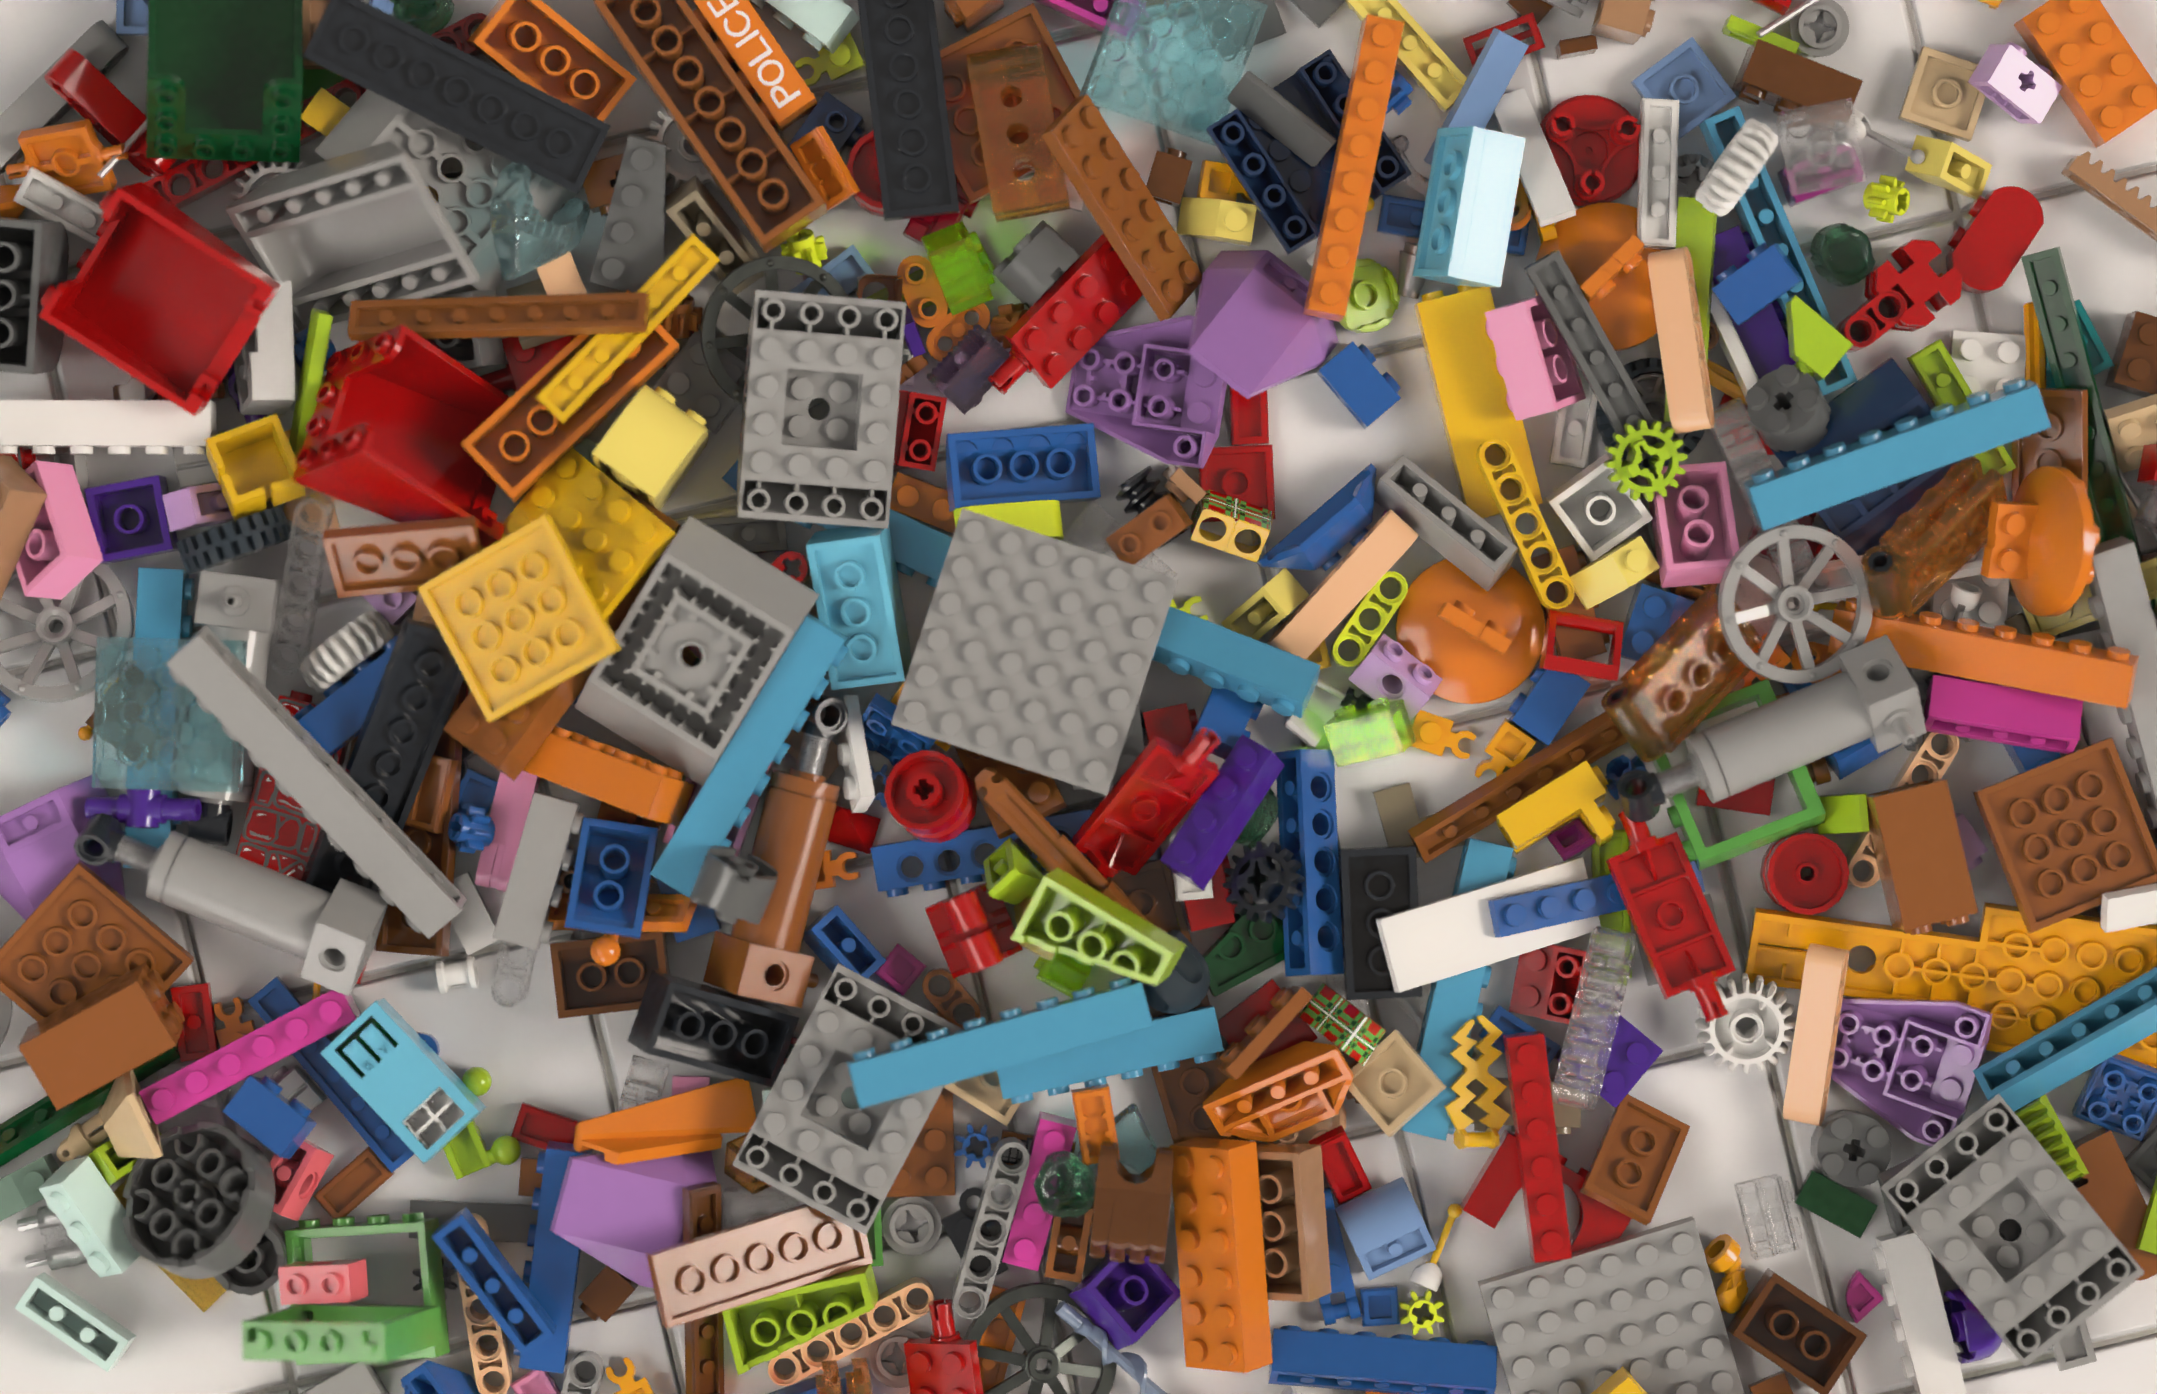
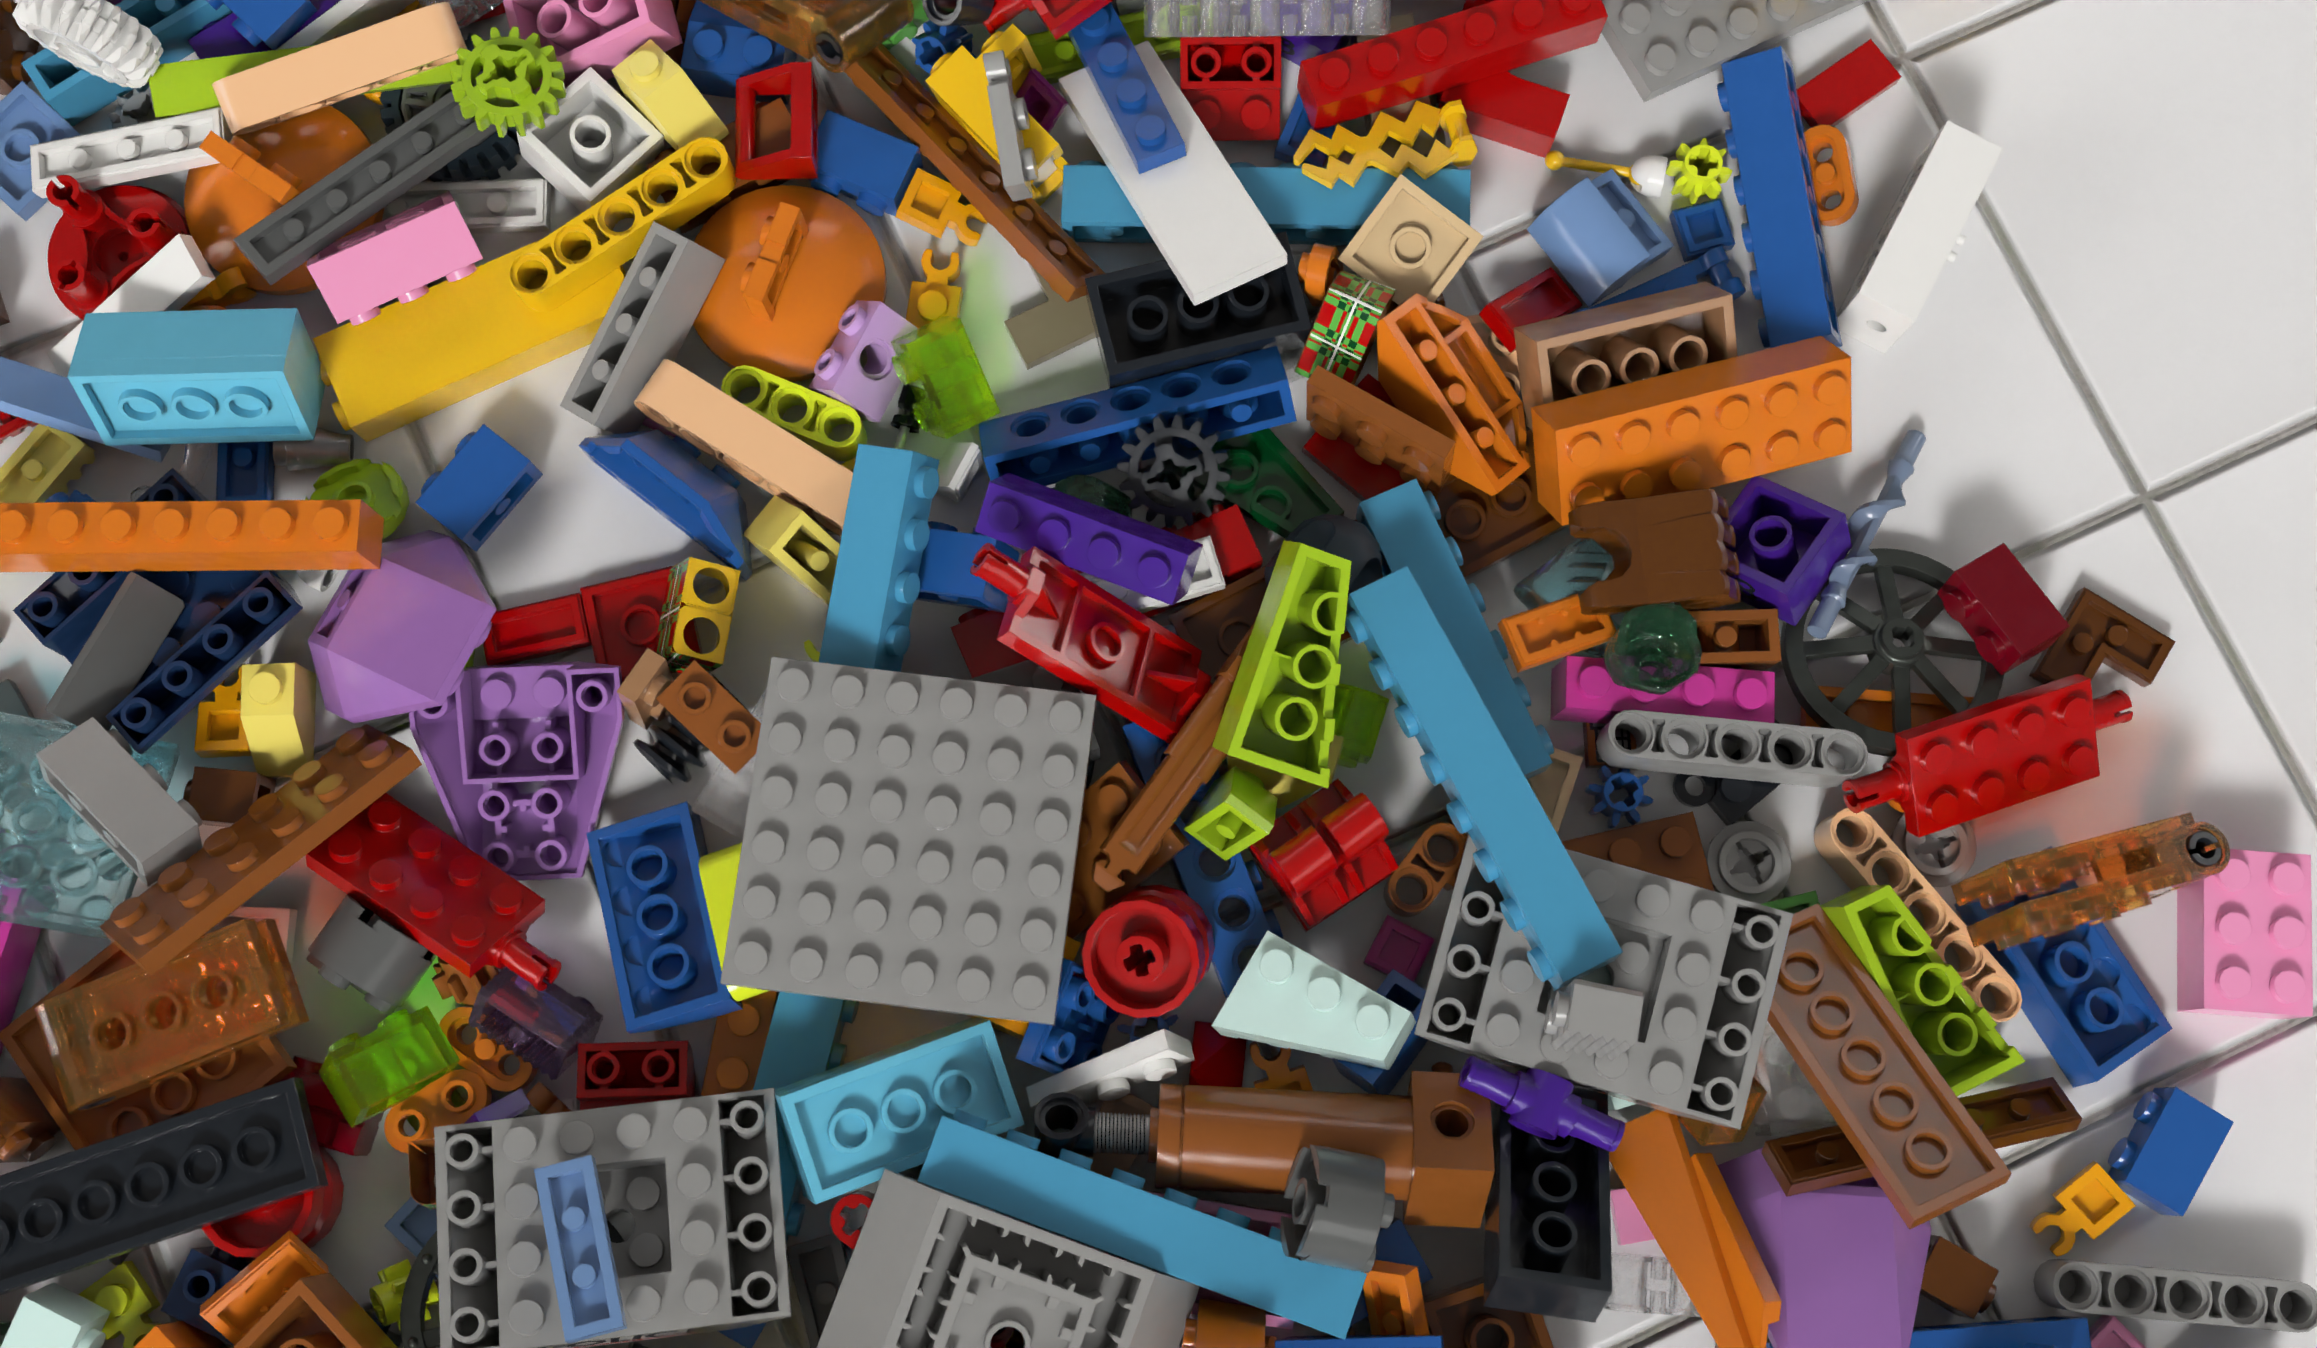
camera: 105 degrees left, 10 degrees down
(775, 1037) = (1541, 1103): none -> dark purple pin
(807, 391) = (580, 1249): none -> medium blue plate
(821, 1079) = (1594, 1018): none -> light grey brick
(870, 897) = (1312, 1008): none -> light aqua wedge
(1174, 113) = (121, 799): none -> light grey brick
(1391, 1016) = (1318, 271): none -> orange plate
(1536, 815) = (1009, 119): none -> light grey plate

